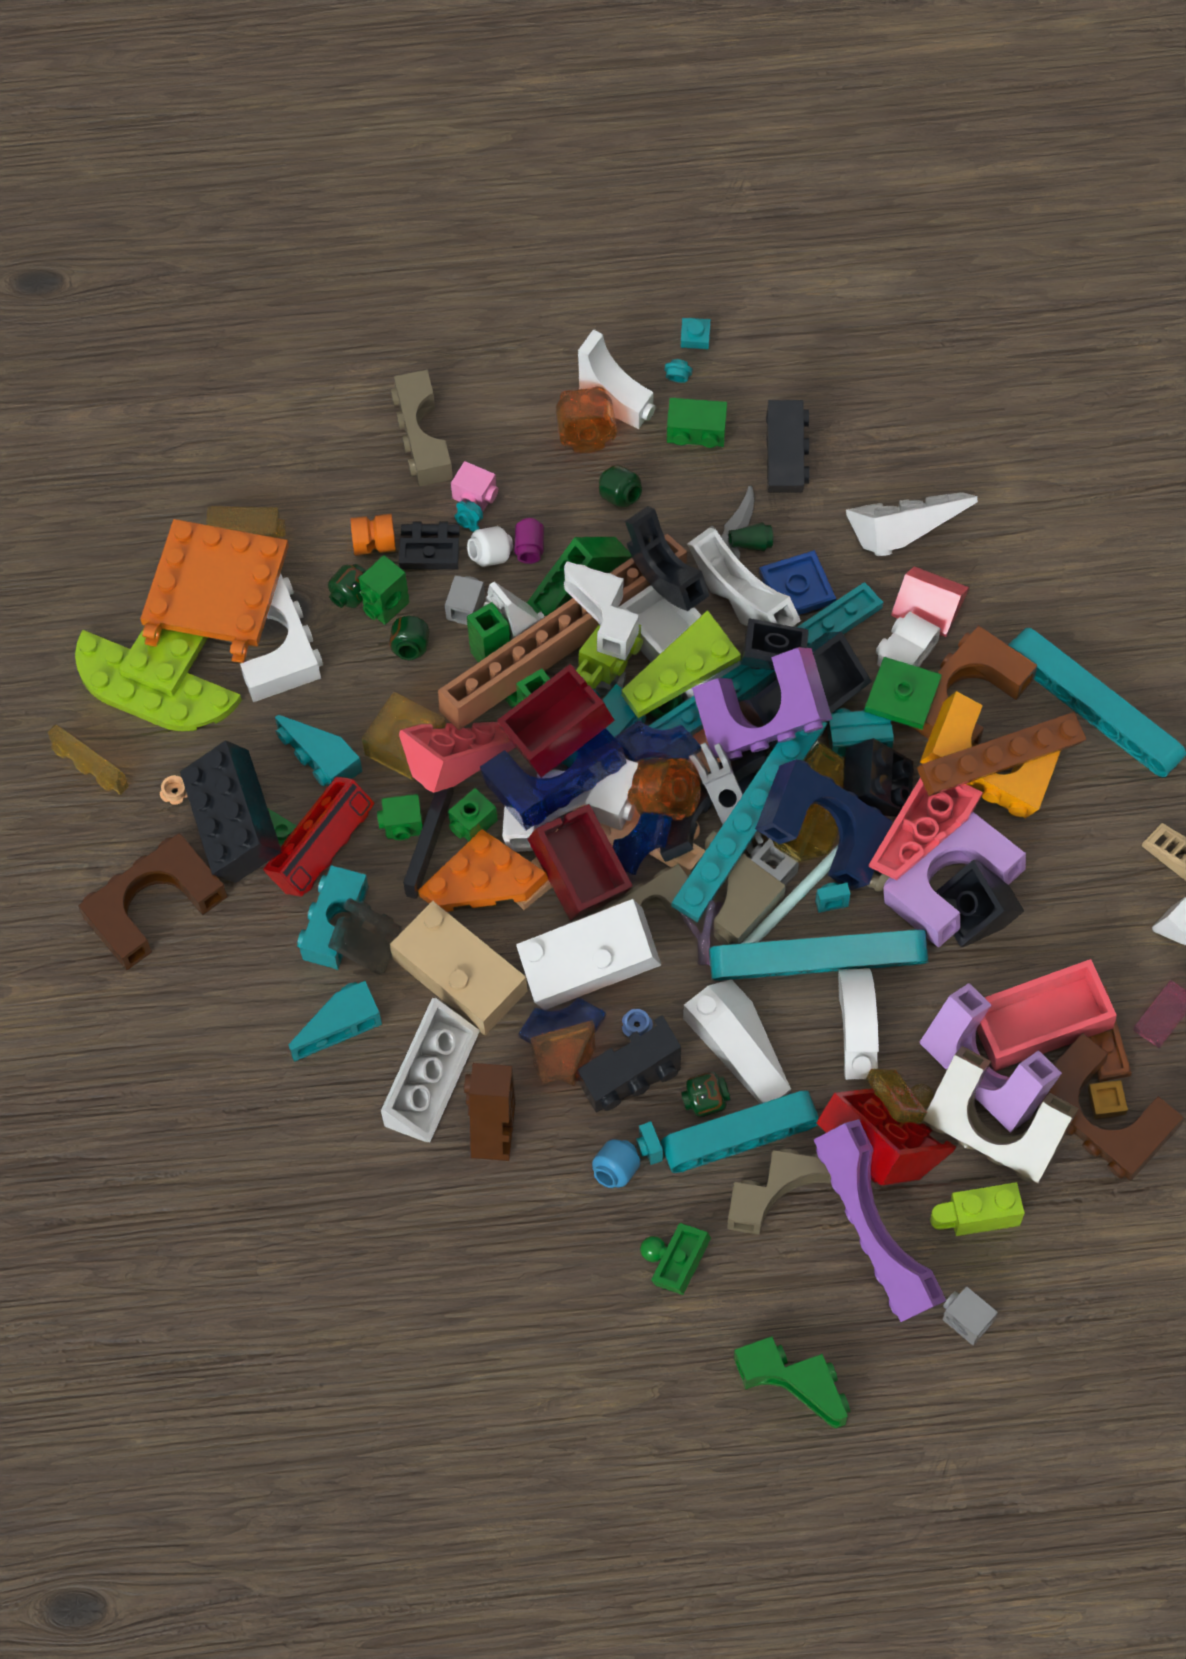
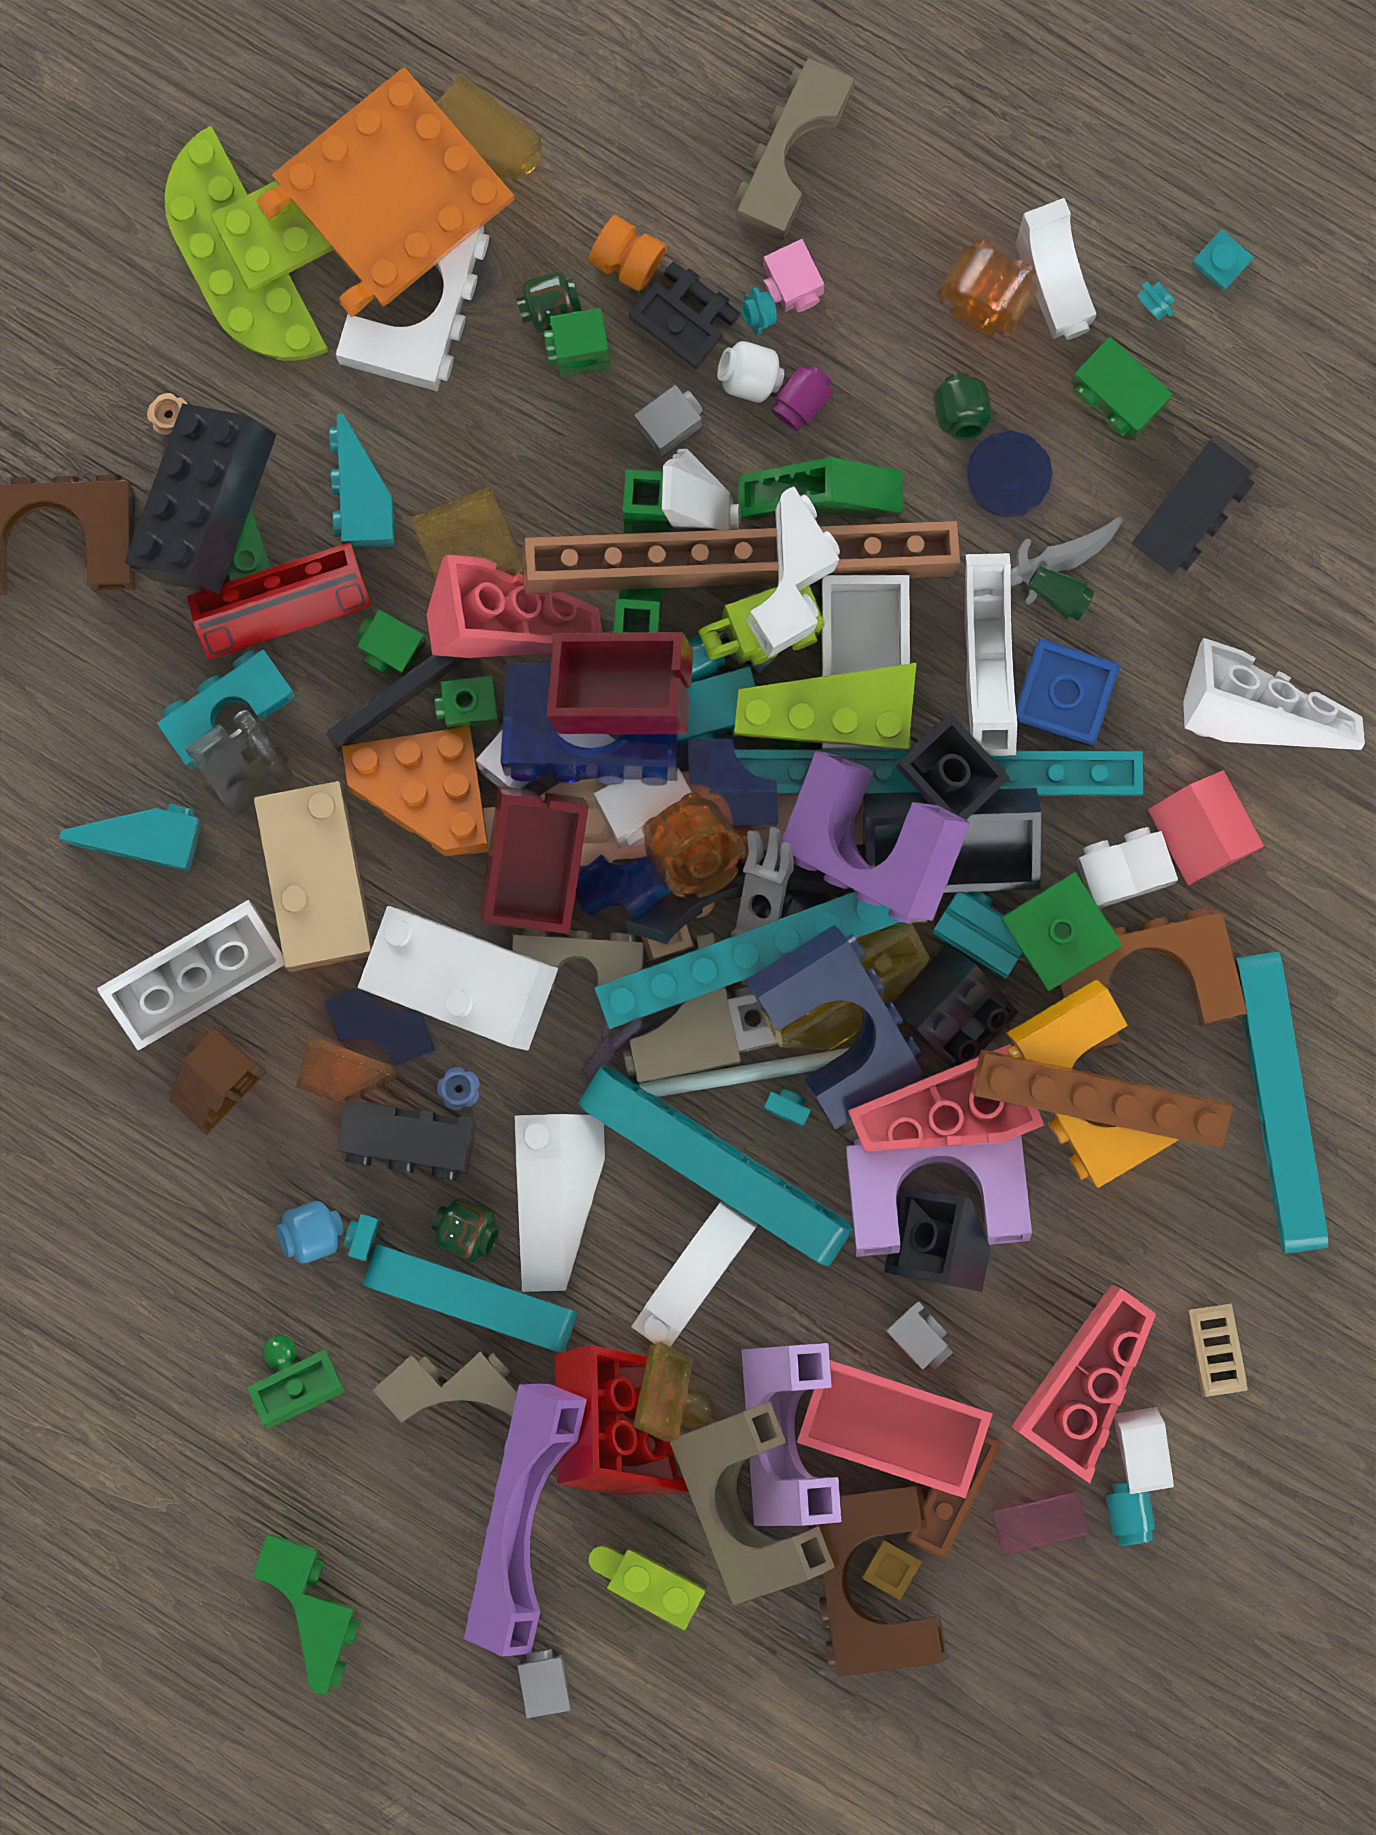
camera: 40 degrees right, 20 degrees up
(87, 760) = (96, 303): clear yellow plate -> none
(409, 637) = (568, 421): dark green head -> none
(660, 566) = (906, 571): black arch -> none
(675, 504) = (1009, 474): none -> clear blue tile
(1011, 963) = (920, 1338): none -> light grey brick
(1125, 918) = (1083, 1389): none -> coral wedge

